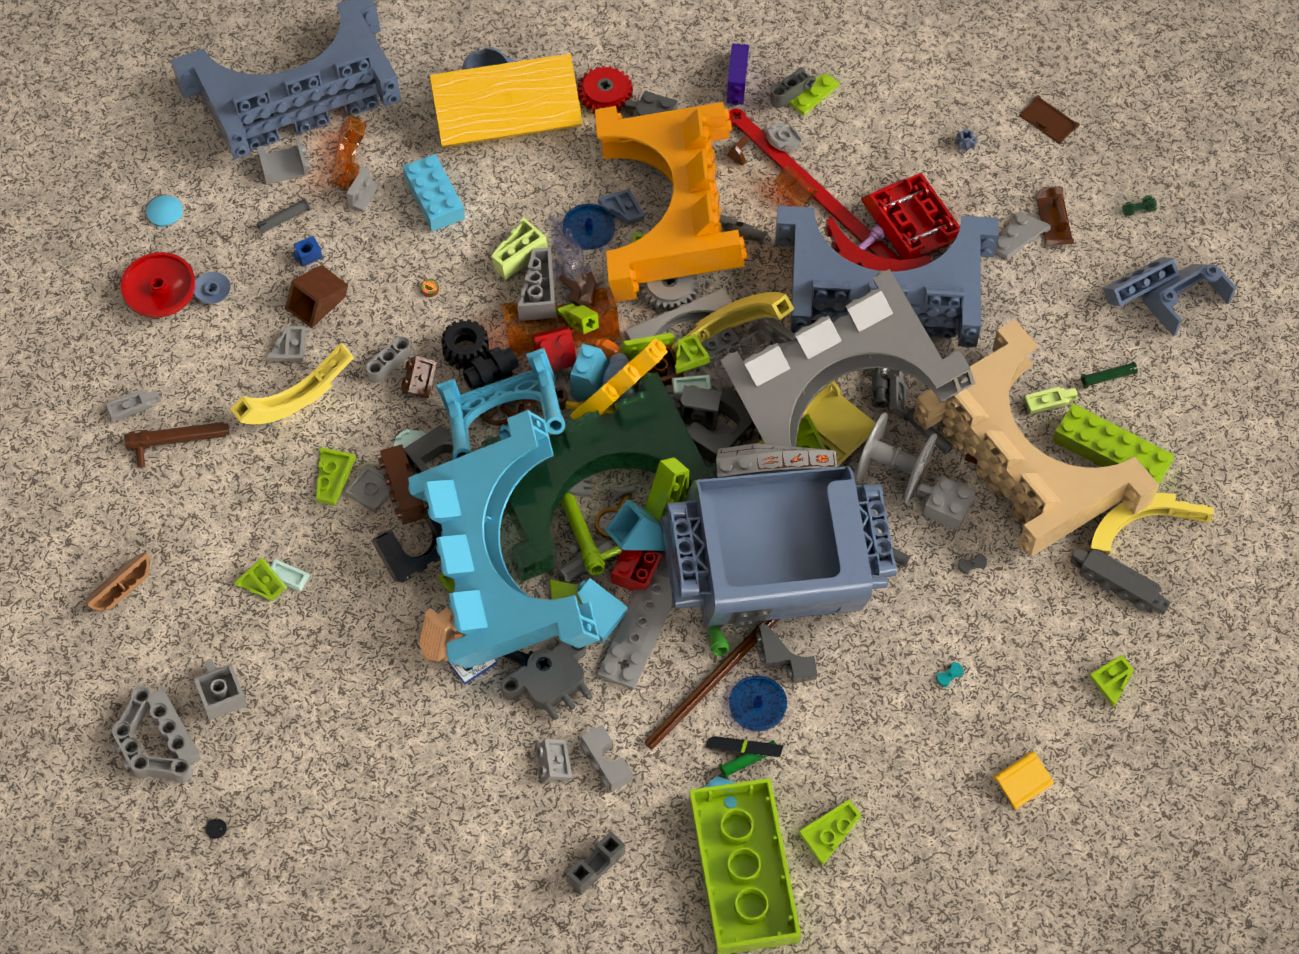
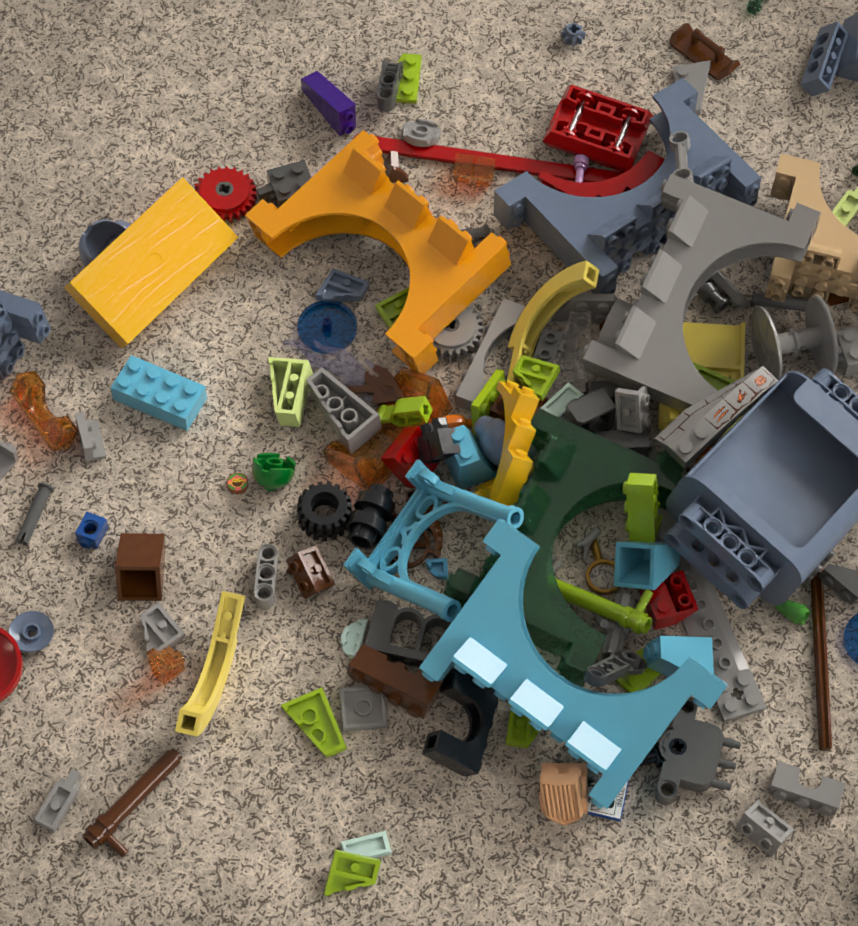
camera: 40 degrees left, 0 degrees up
(271, 367) = (165, 664): none -> clear orange arch
(456, 293) = (273, 471): none -> green cylinder
(555, 581) = (614, 667): none -> dark grey beam
(568, 346) = (436, 442): none -> black hips
(728, 421) = (632, 409): none -> light grey bracket
(942, 261) = (680, 145): none -> light grey piece

